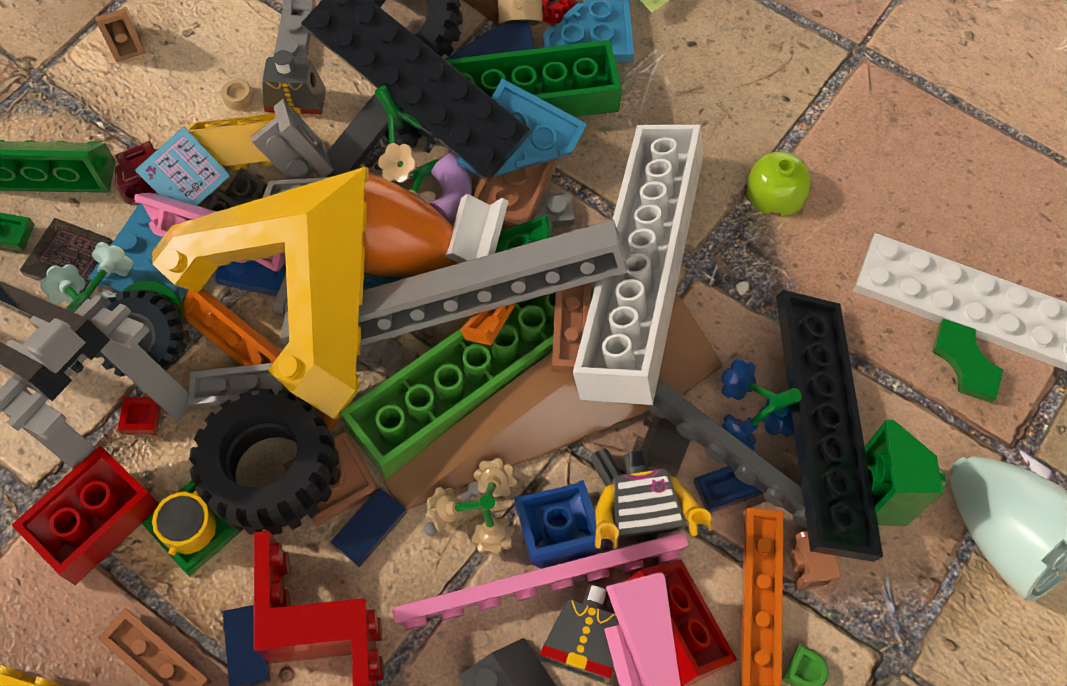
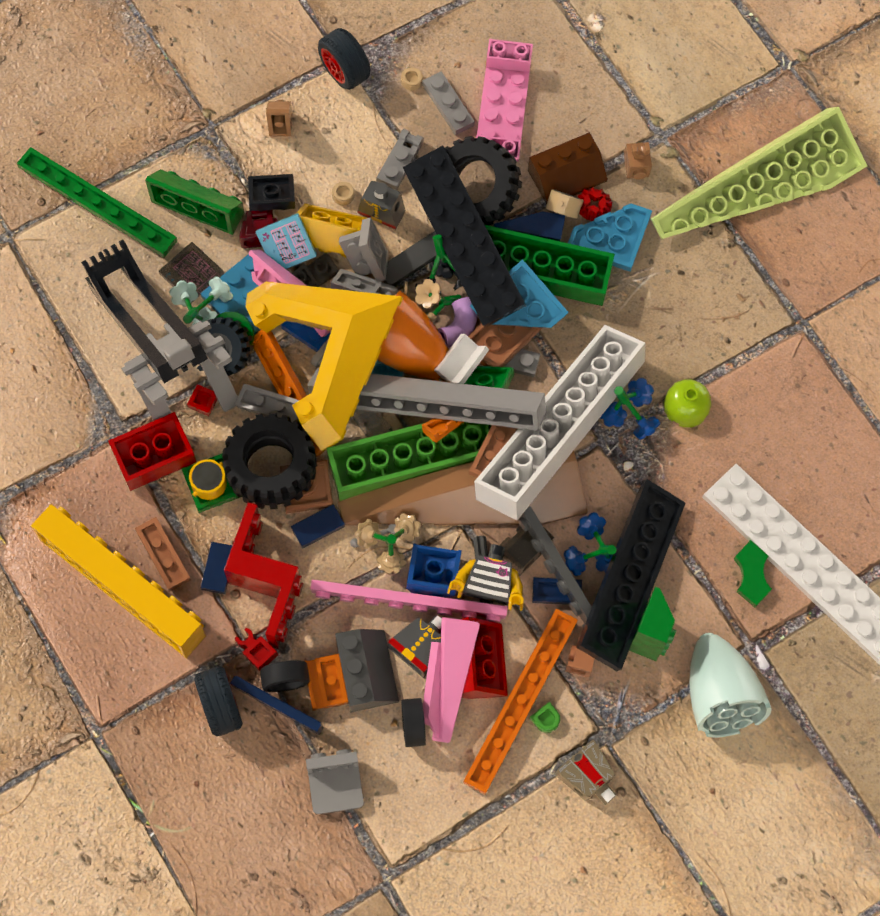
camera: 20 degrees right, 5 degrees up
(141, 121) = (271, 192): none -> black plate
(715, 194) = (640, 394): none -> blue plant

